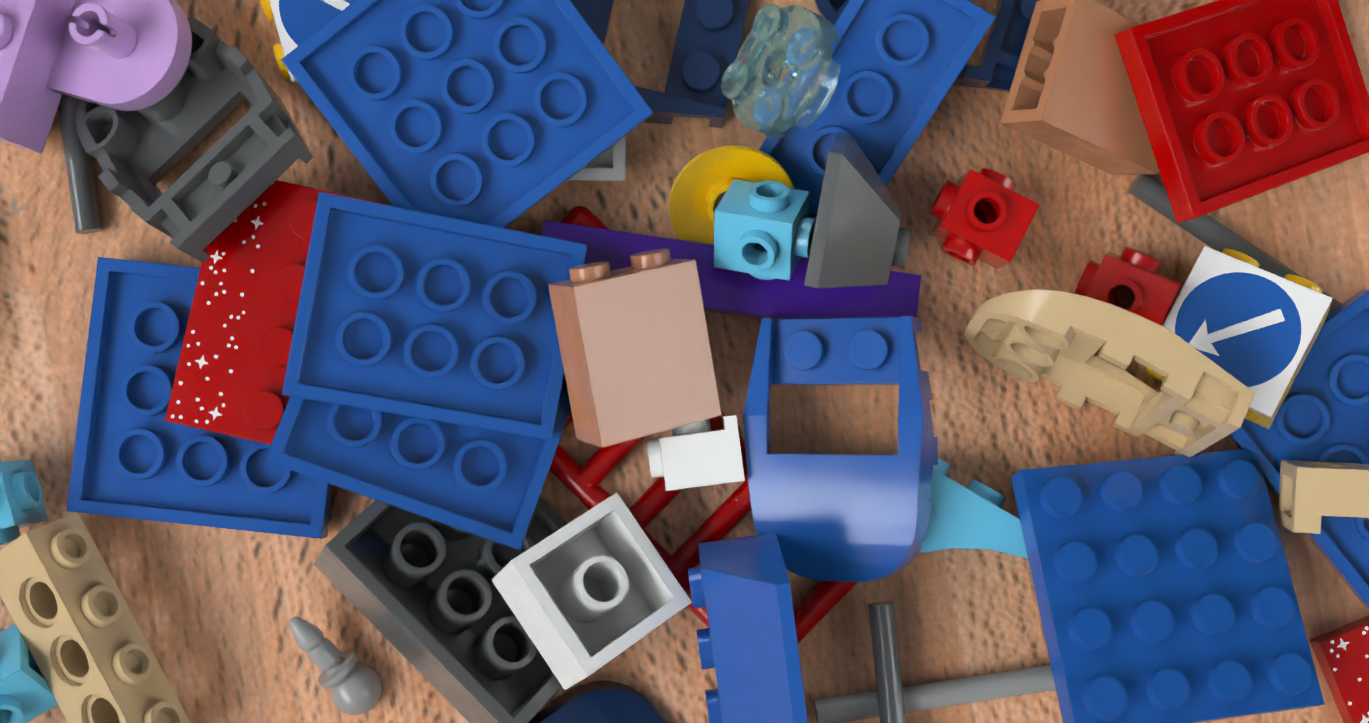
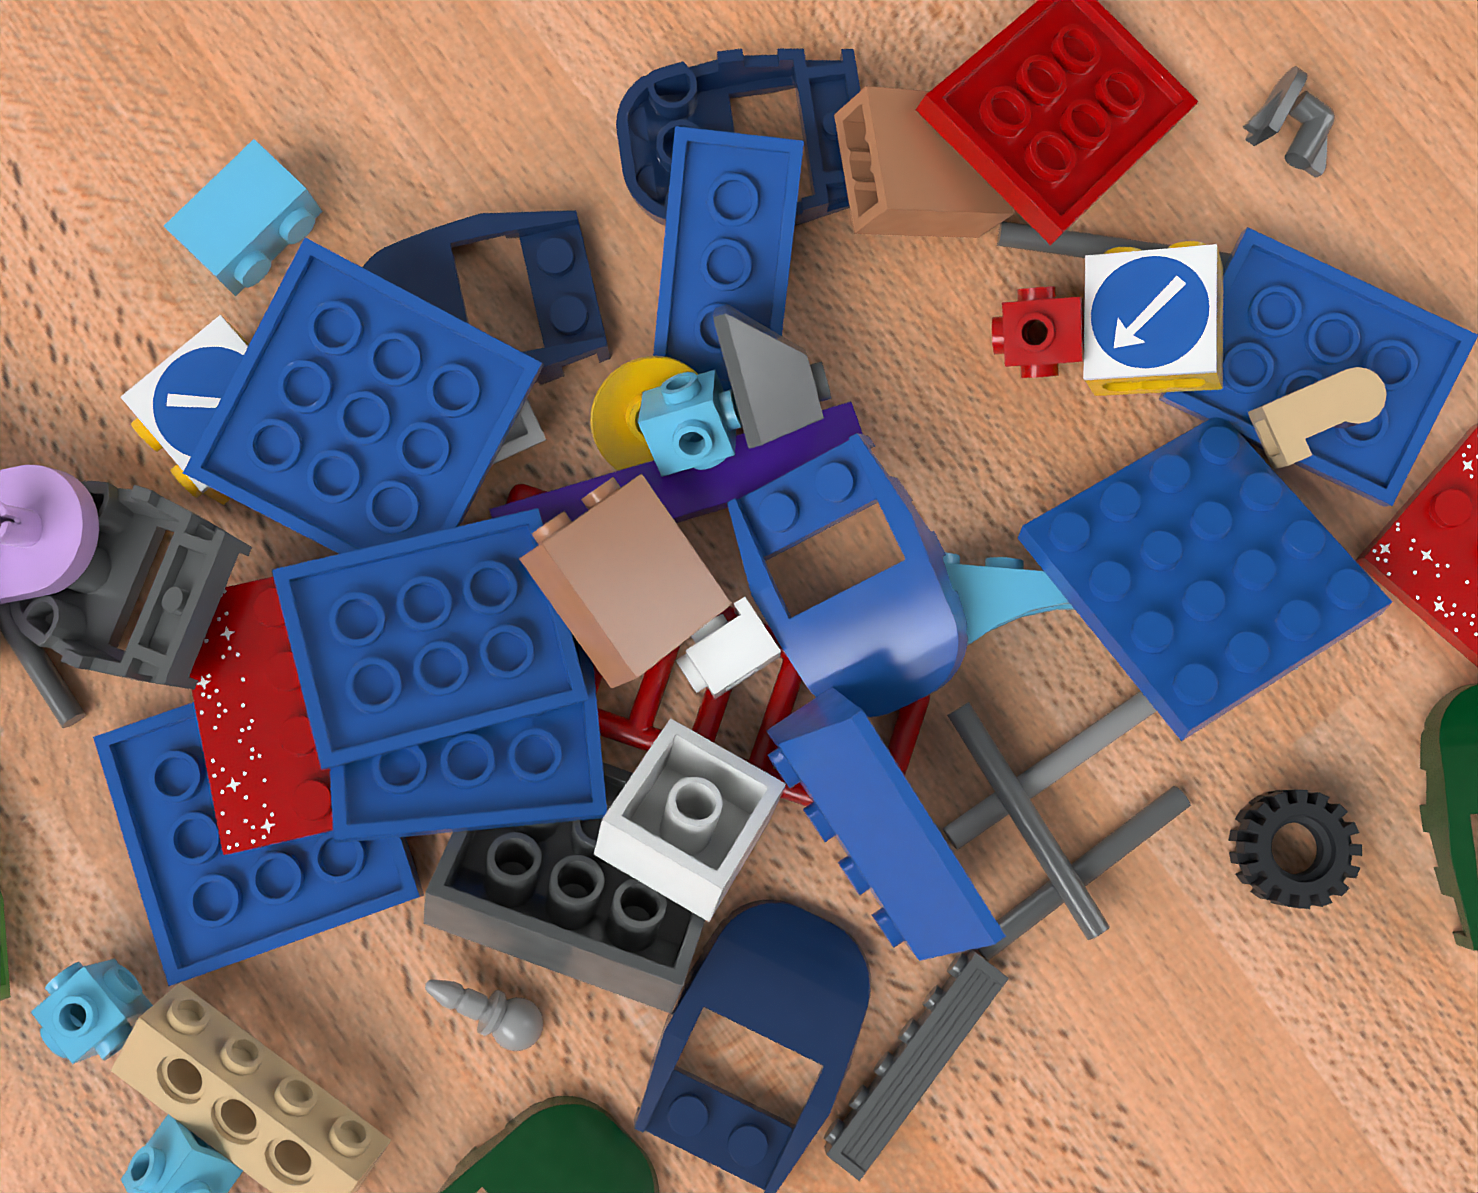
camera: 25 degrees left, 5 degrees down
(781, 39) = (623, 251): clear light blue plate -> none
(1002, 212) = (879, 325): red brick -> none
(1057, 338) = (992, 388): tan slope -> none

